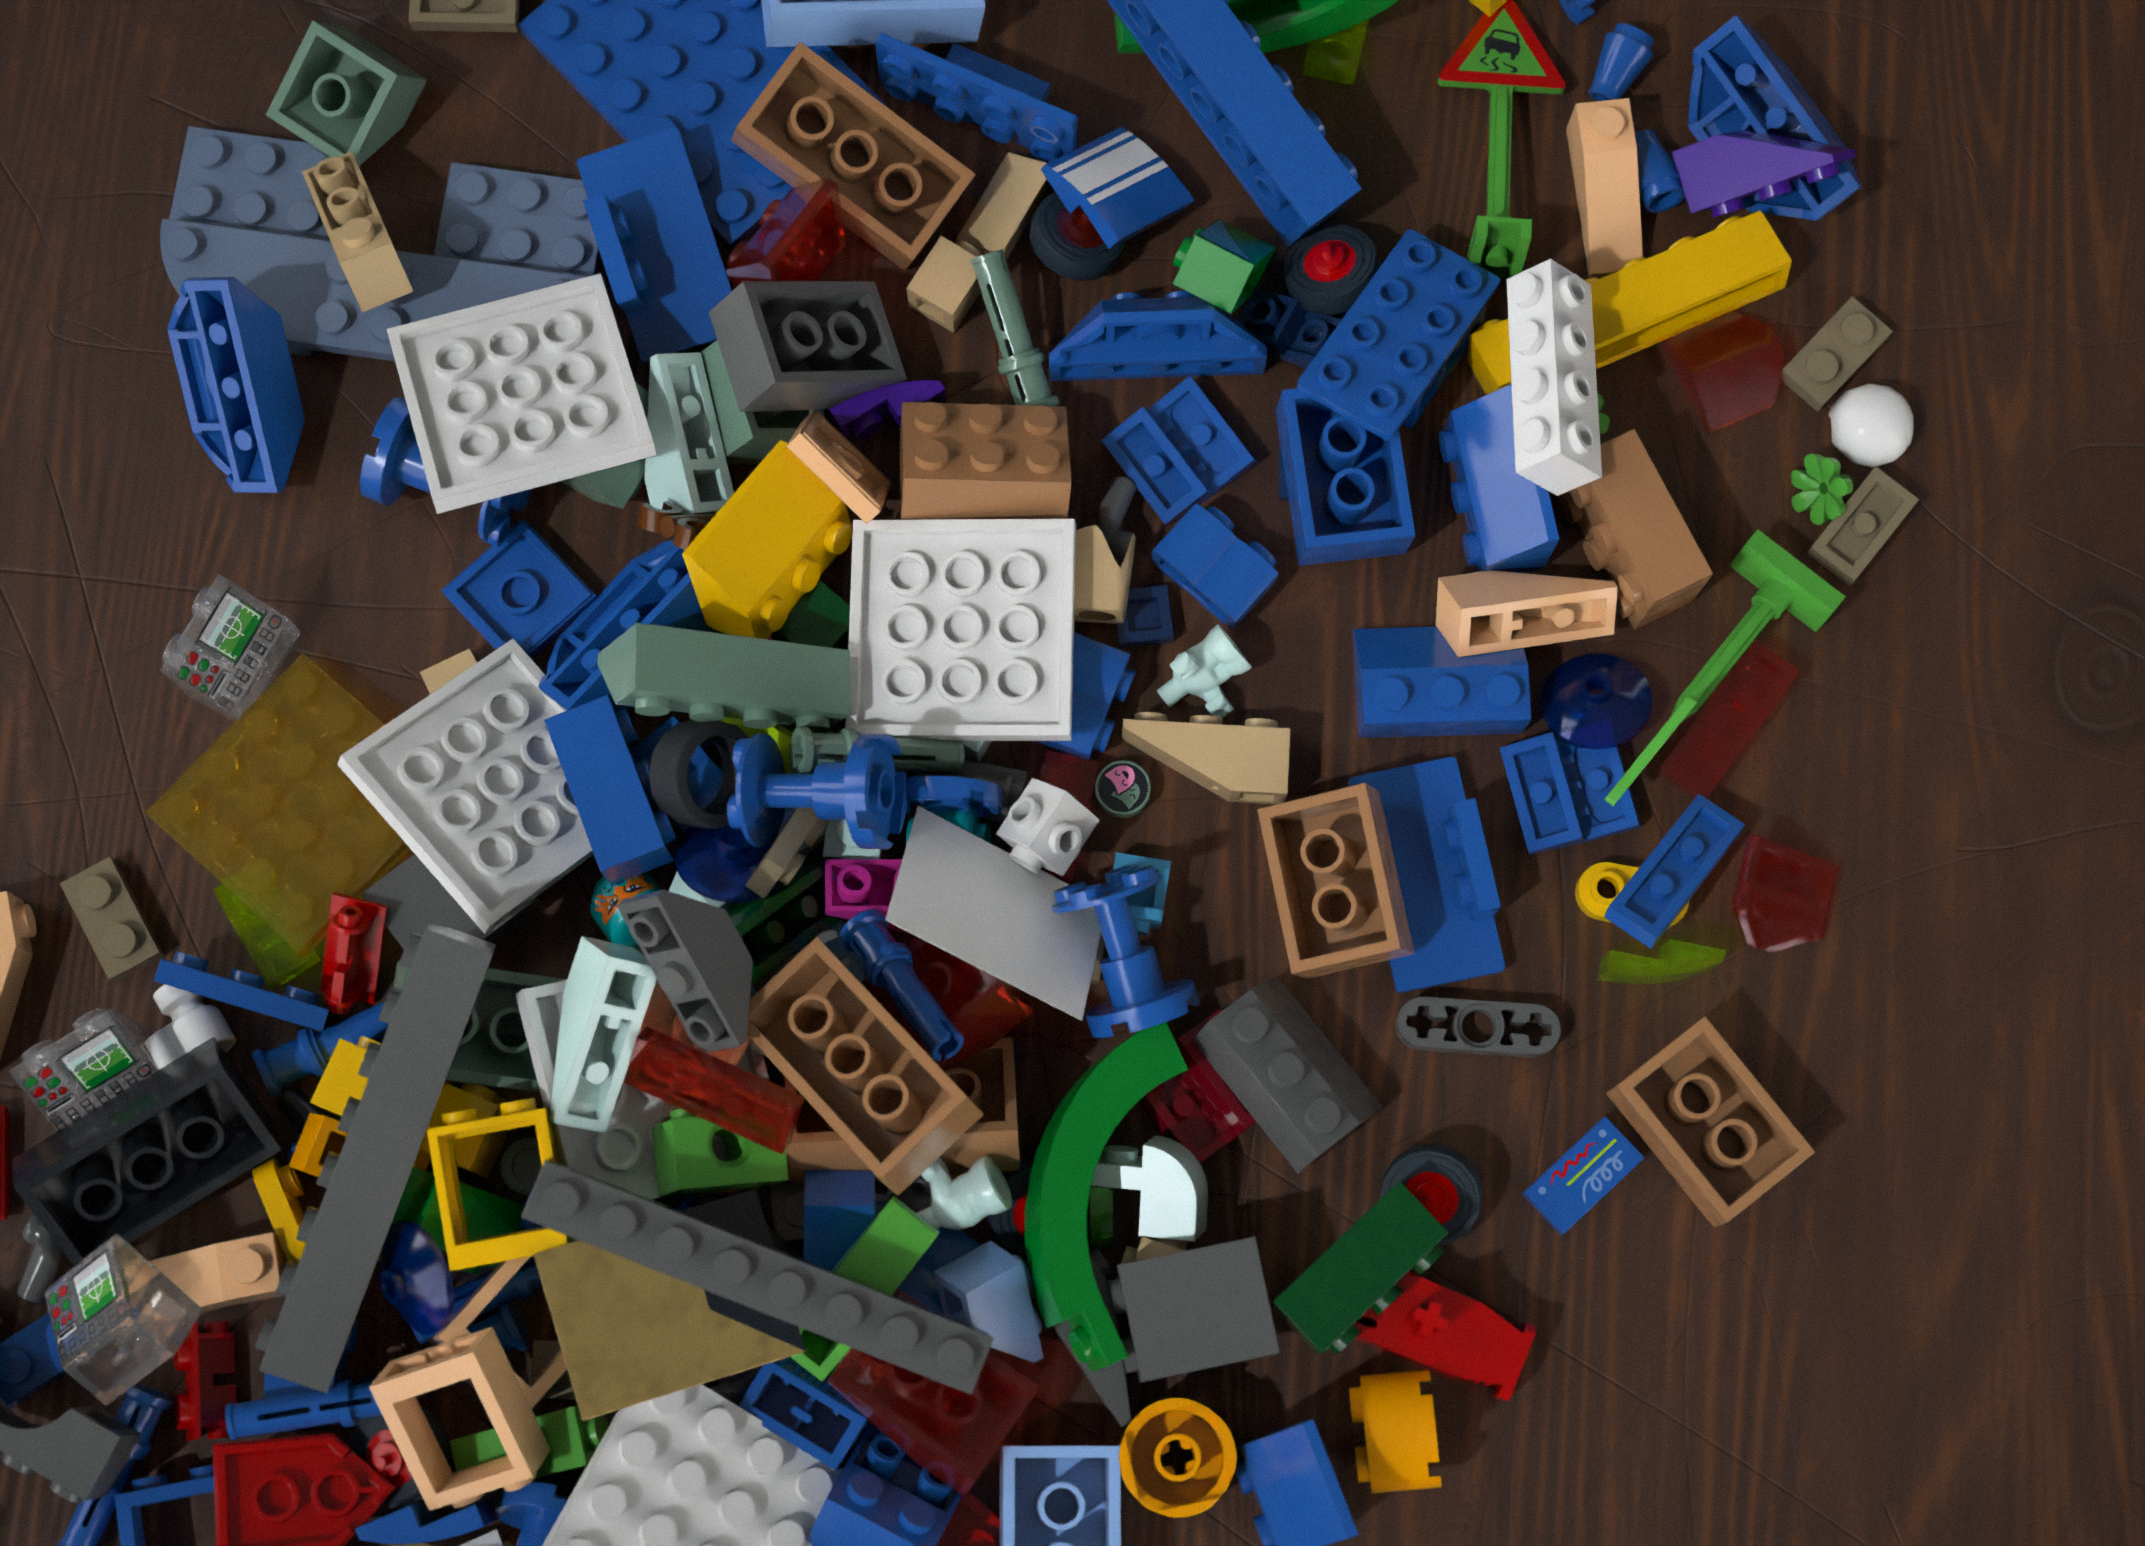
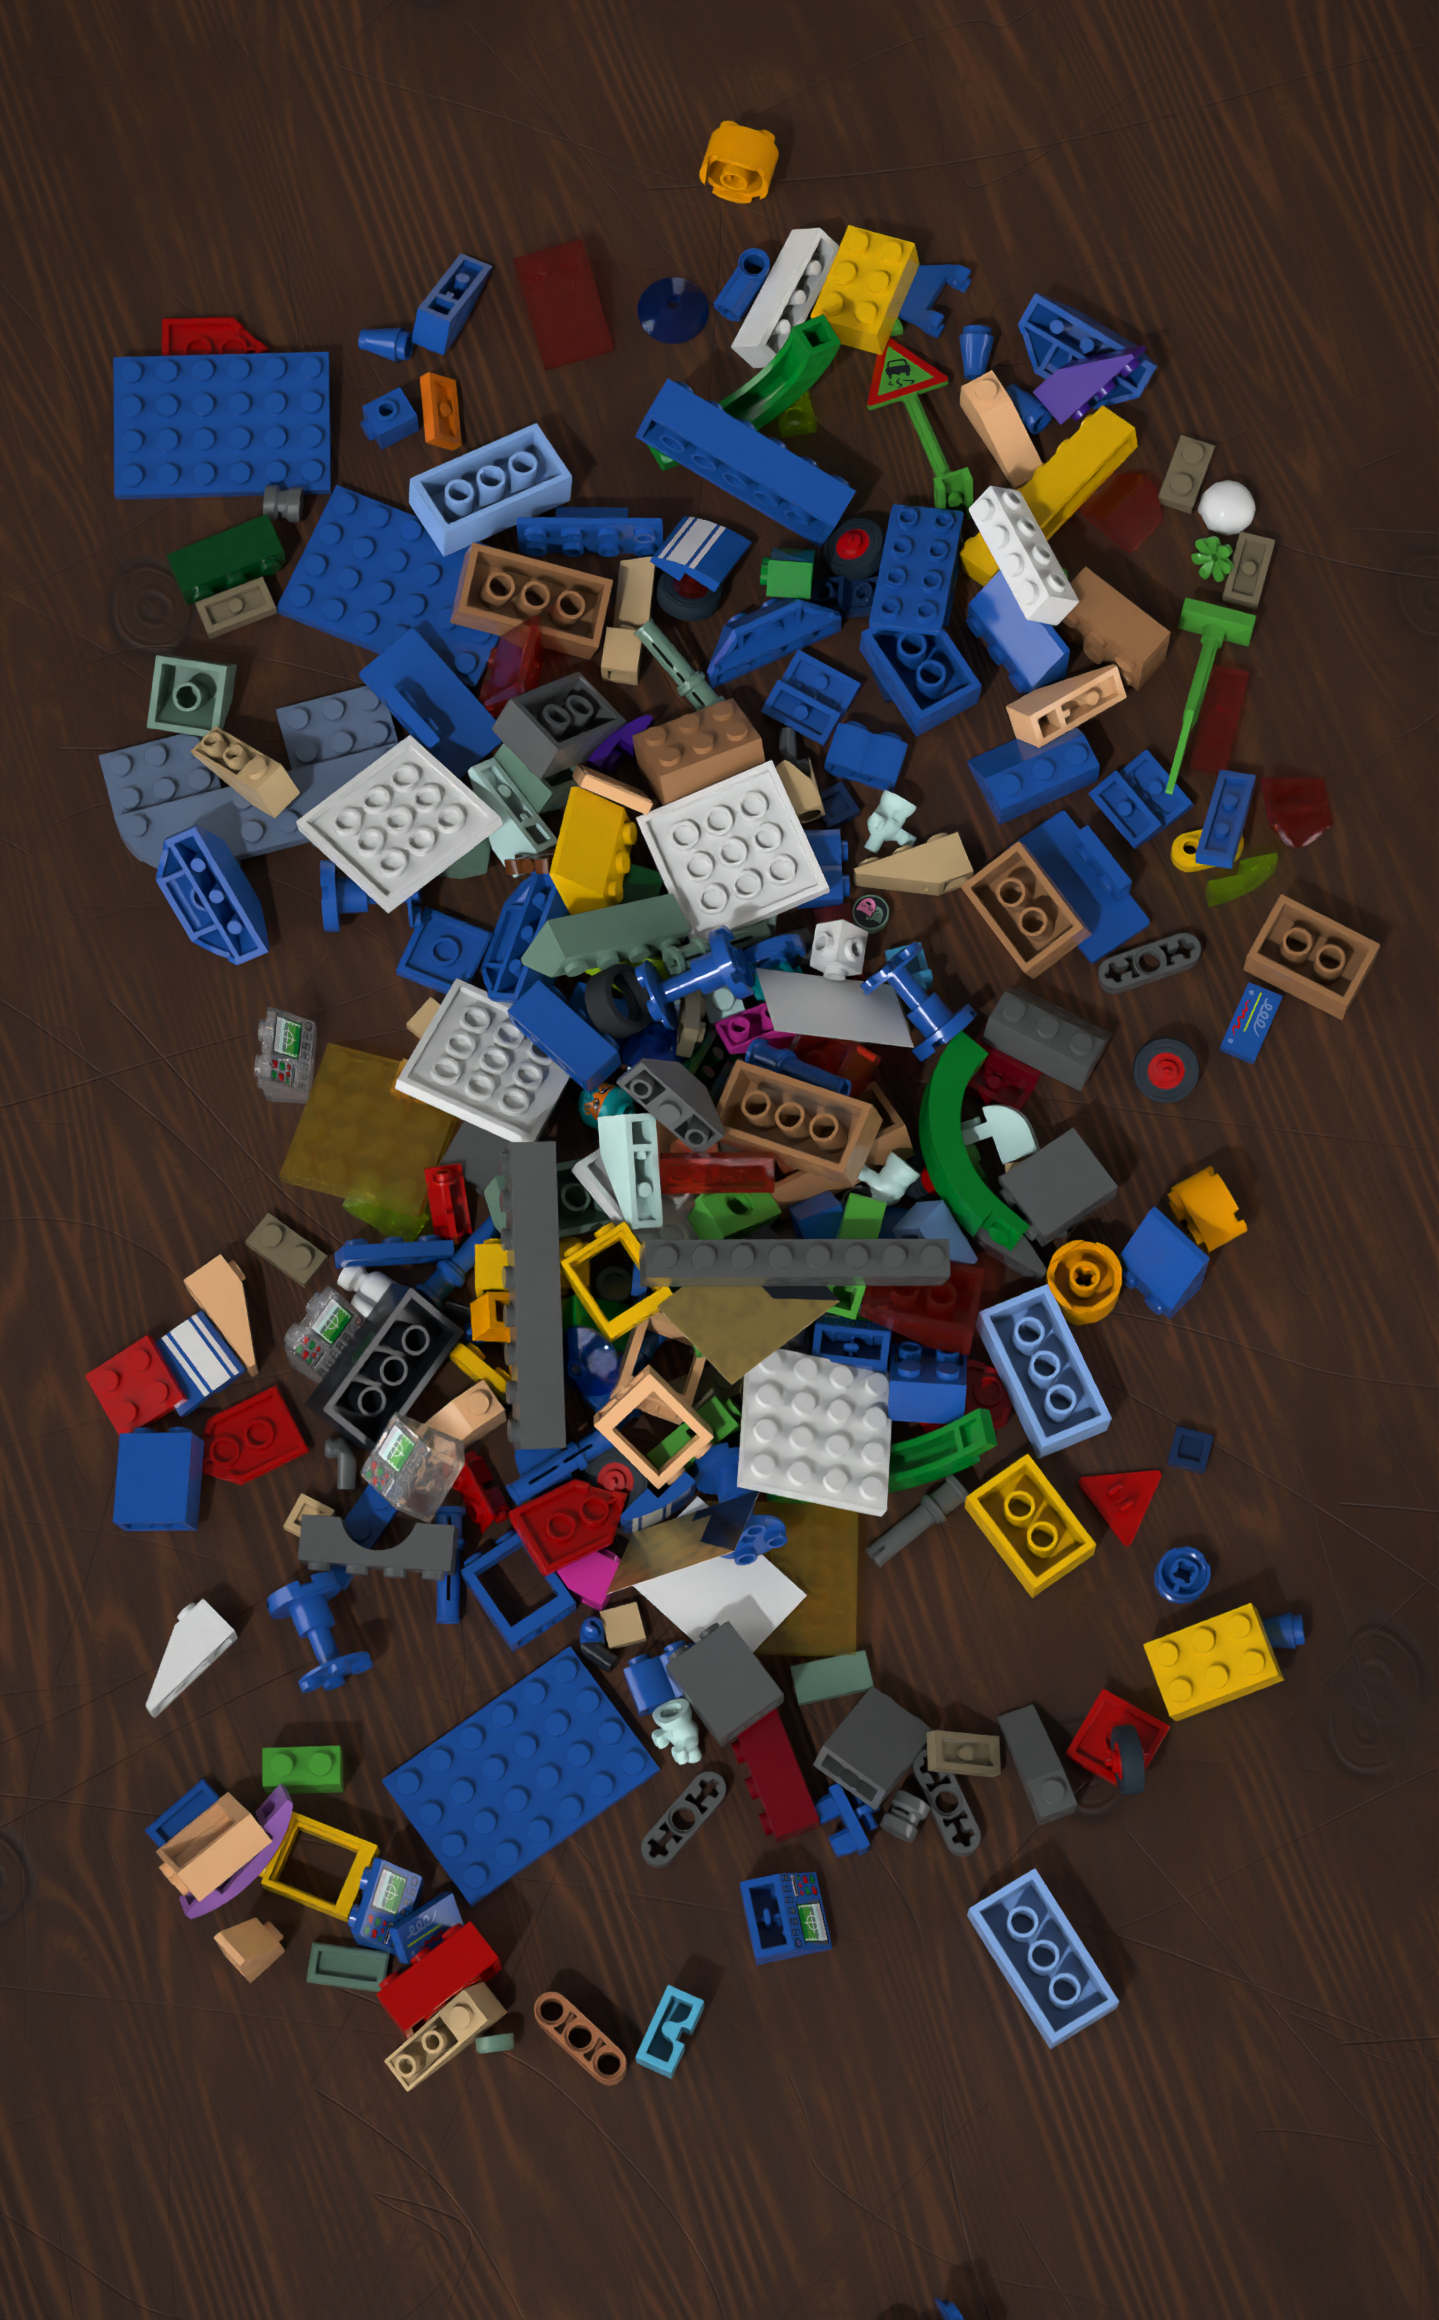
camera: 20 degrees left, 5 degrees down
(1361, 1271) = (1144, 1123): dark green brick -> none
(1449, 1336) = (1191, 1144): red piece -> none
(1596, 719) = (1137, 751): clear blue dish -> none

